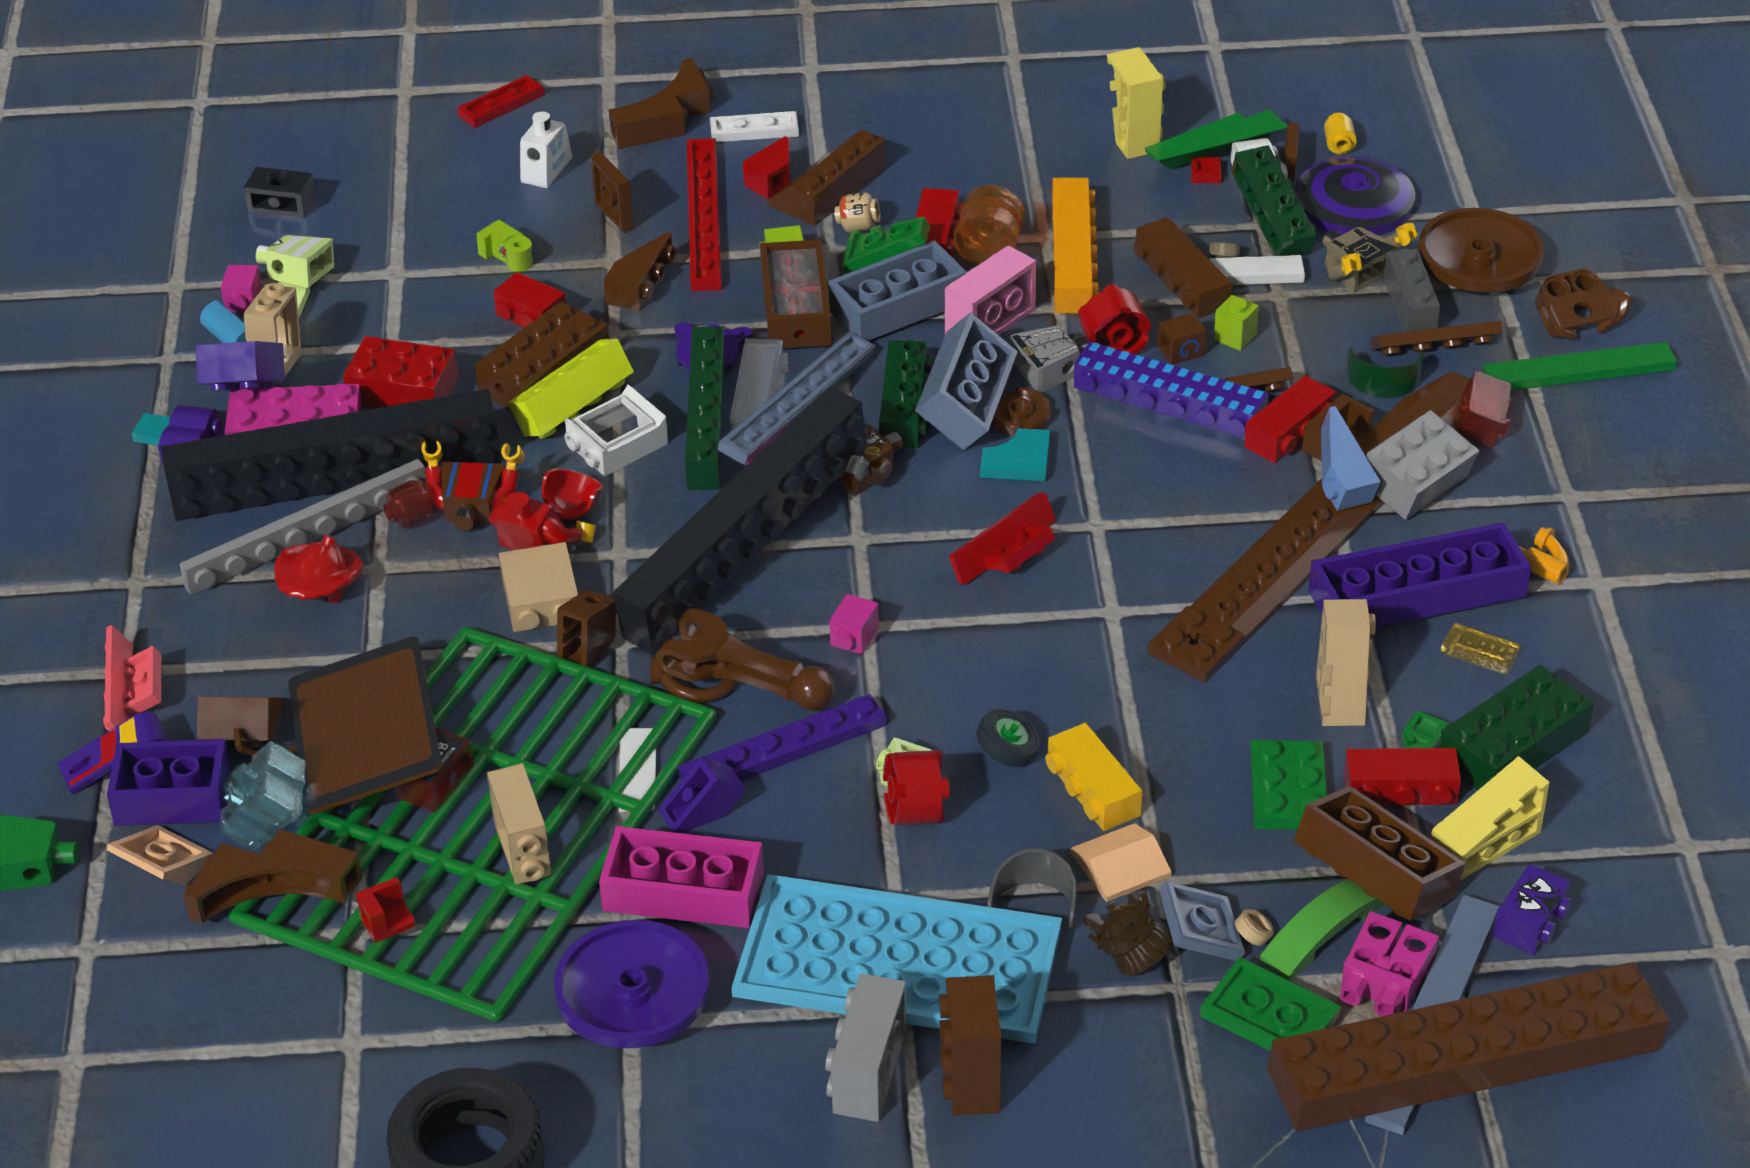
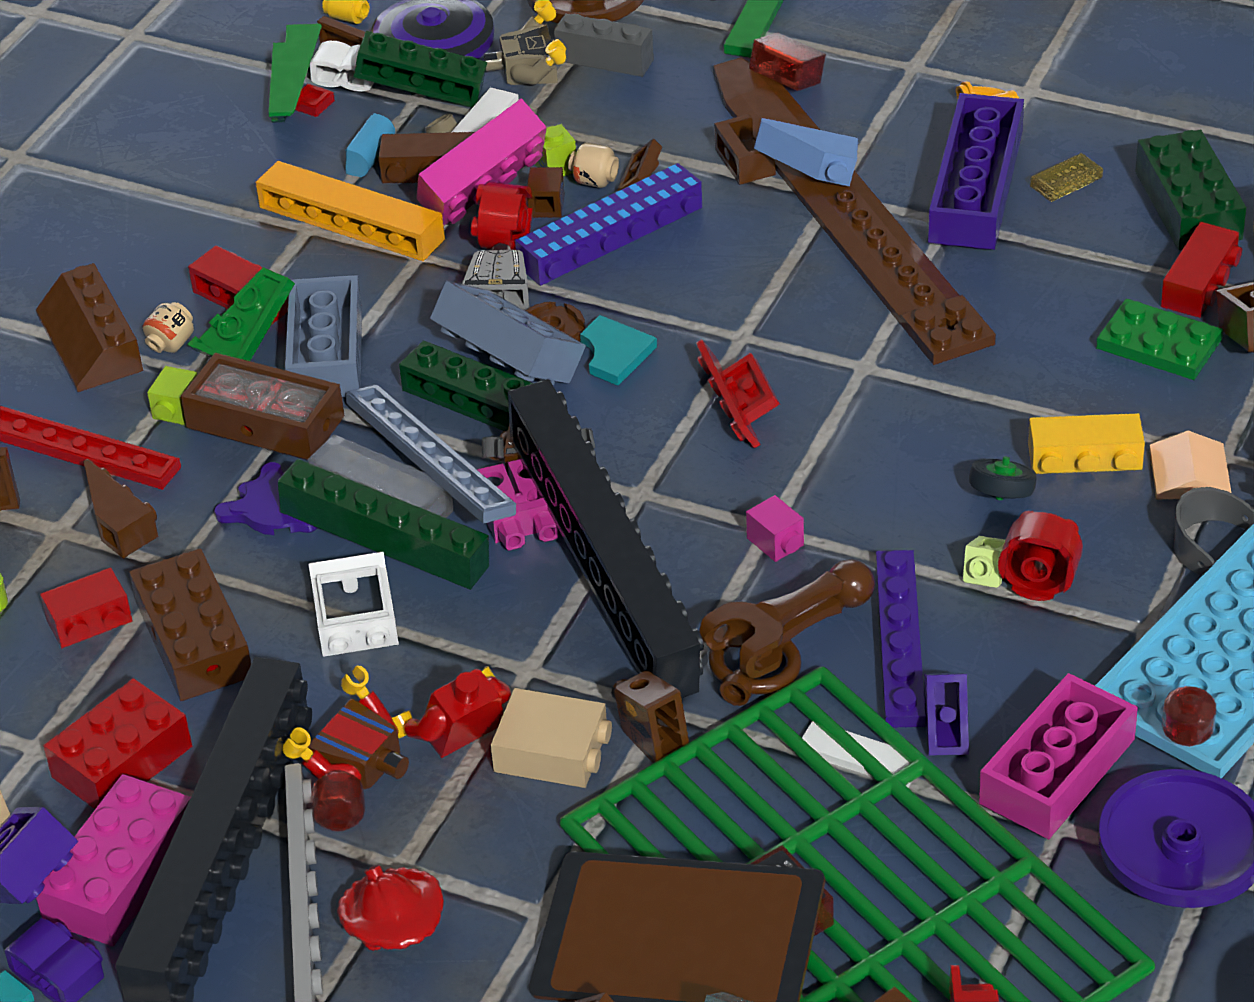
camera: 60 degrees left, 0 degrees up
(519, 824) = (933, 865): tan window -> none
(570, 492) = (429, 664): red helmet -> none
(571, 388) = (262, 606): neon yellow brick -> none
(760, 935) = (1189, 716): none -> clear red head
(768, 169) = (40, 363): red slope -> none
(988, 223) = (289, 242): clear orange wheel -> none
(995, 291) = (396, 280): bright pink brick -> none
(1138, 101) = (217, 83): light yellow wedge -> none
(1159, 276) = (486, 156): none -> dark pink brick
(1180, 214) = (365, 146): none -> dark azure brick
(1236, 350) = (594, 165): none -> tan head
(1281, 423) = (707, 160): red brick -> none
(1343, 661) = (1067, 239): tan wedge -> none
(1381, 380) = (690, 108): dark green piece -> none
(1420, 464) = (838, 107): light grey brick -> none
(1423, 339) = (666, 57): reddish brown plate -> none
(1423, 731) = (1150, 245): green tile -> none

